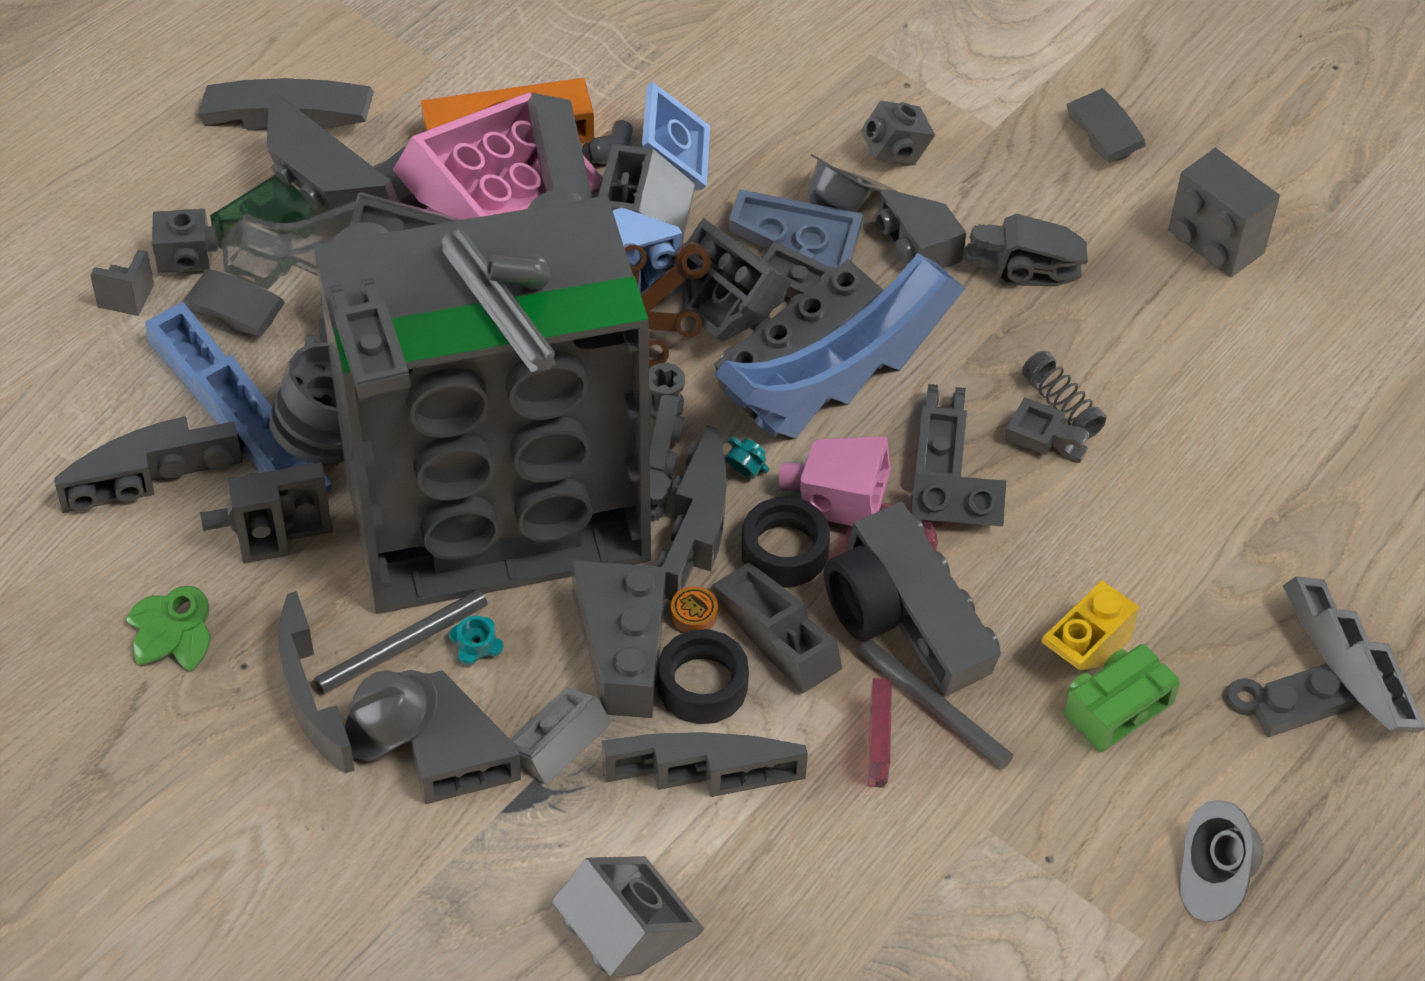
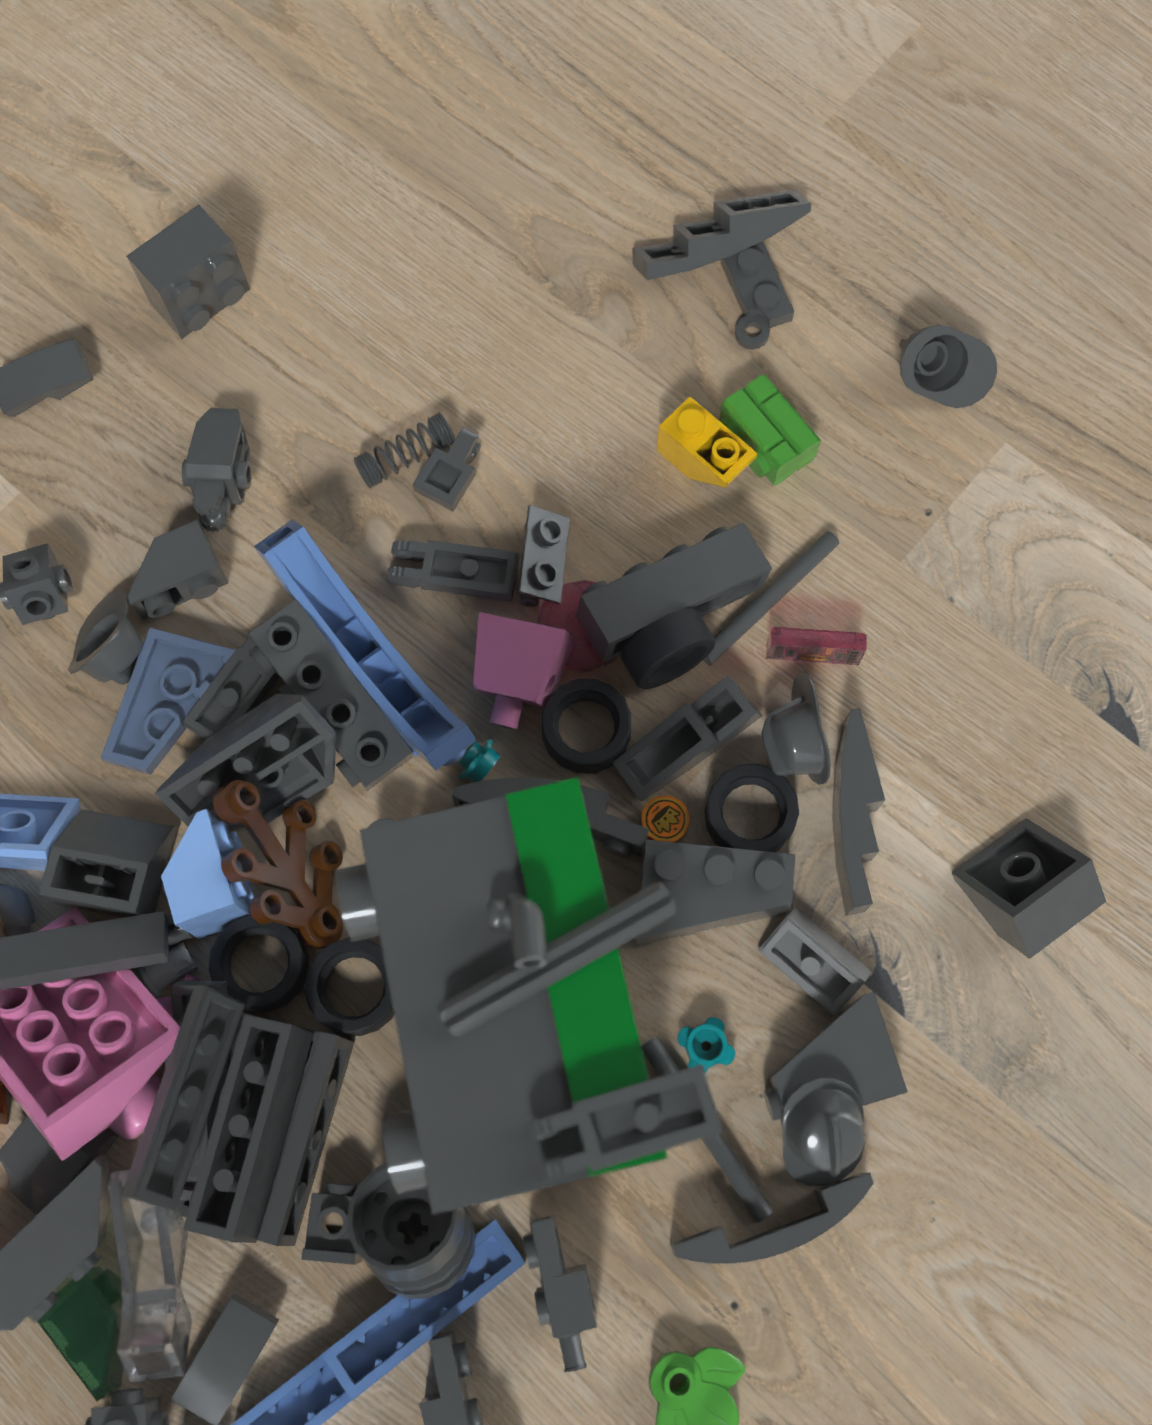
camera: 85 degrees left, 20 degrees up
(780, 701) = (795, 735): none -> dark grey piece

